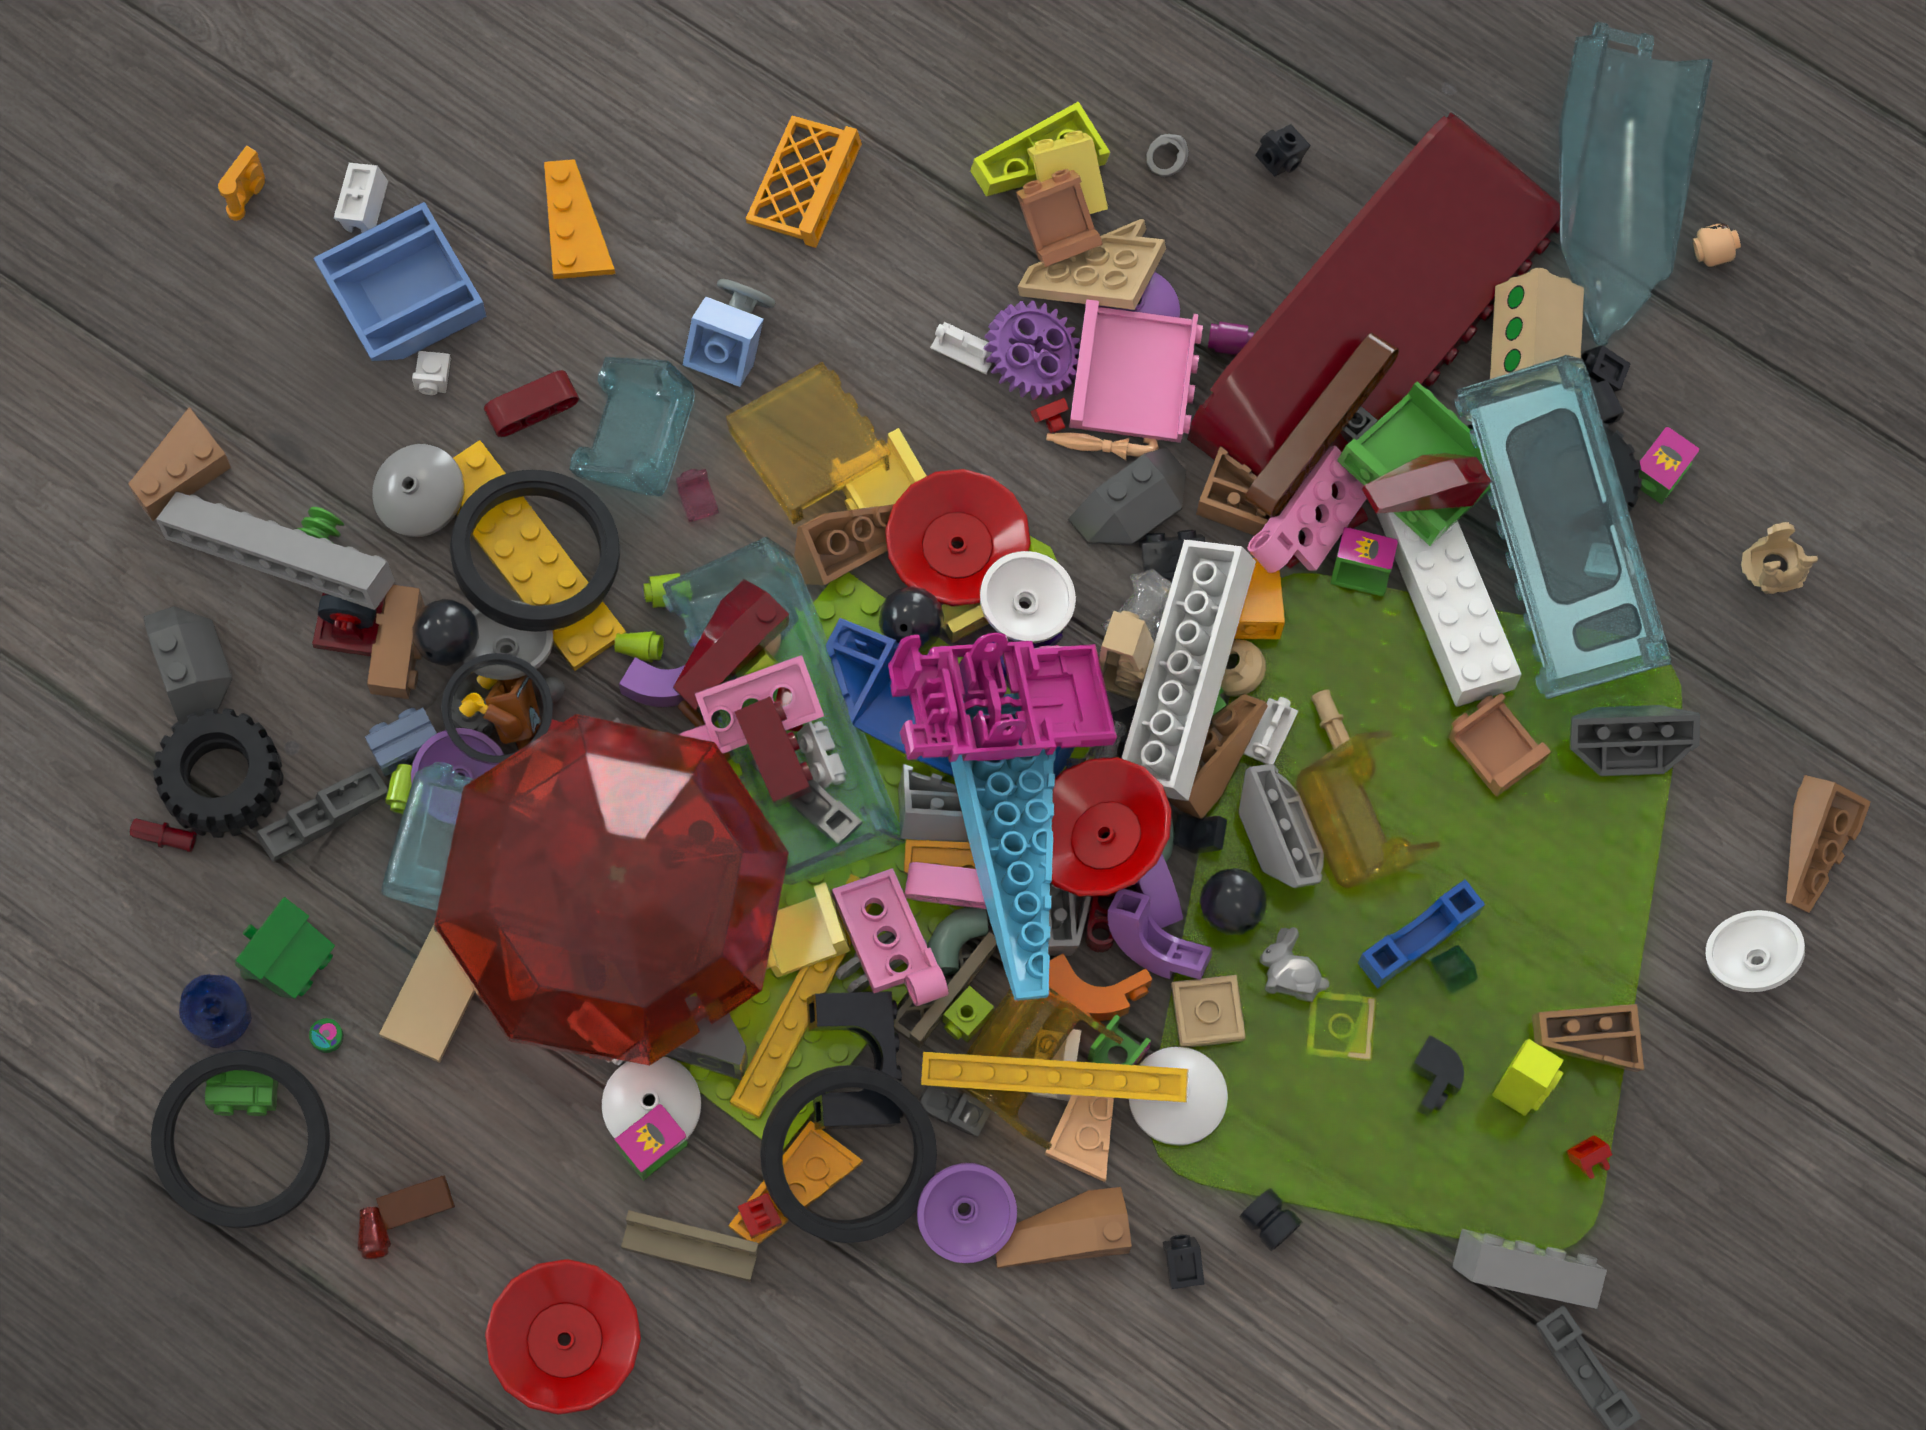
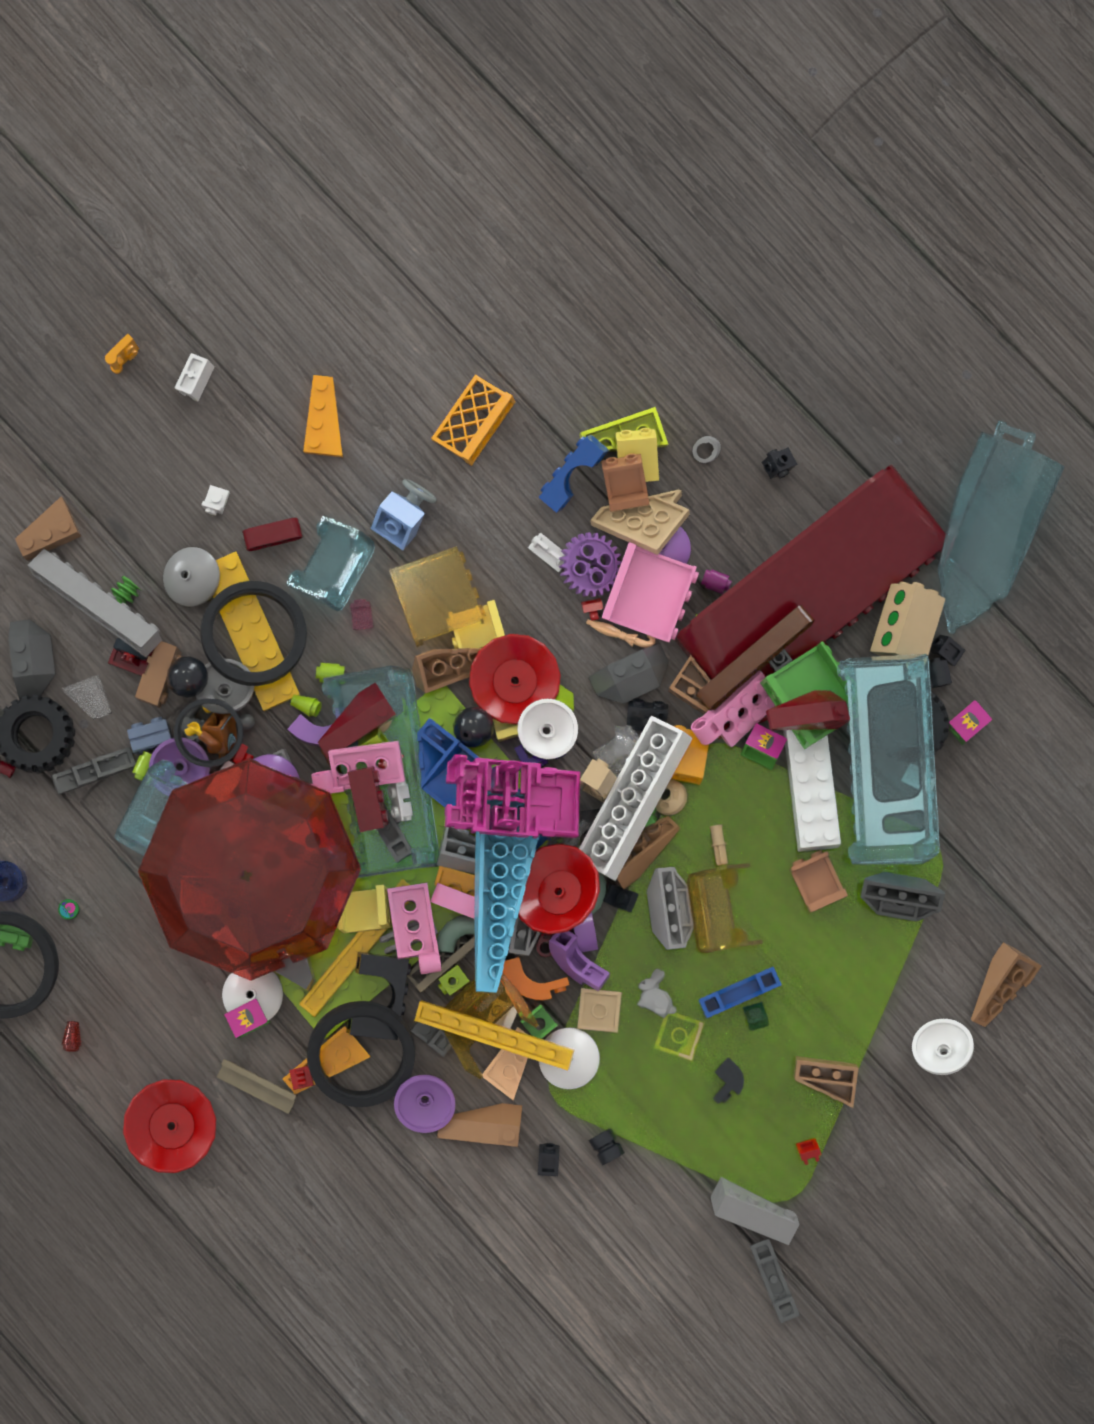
camera: 20 degrees right, 10 degrees up
(284, 951) = (51, 858): green piece -> none
(293, 703) = (90, 697): none -> clear wing
(401, 285) = (206, 442): medium blue slope -> none
(415, 1202) = (100, 1024): reddish brown slope -> none
(429, 1002) = (130, 907): tan tile -> none
(958, 254) = (558, 491): none -> blue arch
(1233, 901) = (629, 948): black piece -> none
(1271, 731) = (680, 843): white hinge -> none
(1529, 1078) = (783, 1095): neon yellow wedge -> none
(1716, 244) = (1040, 582): light nougat head -> none
(1768, 575) = (1035, 797): tan piece -> none

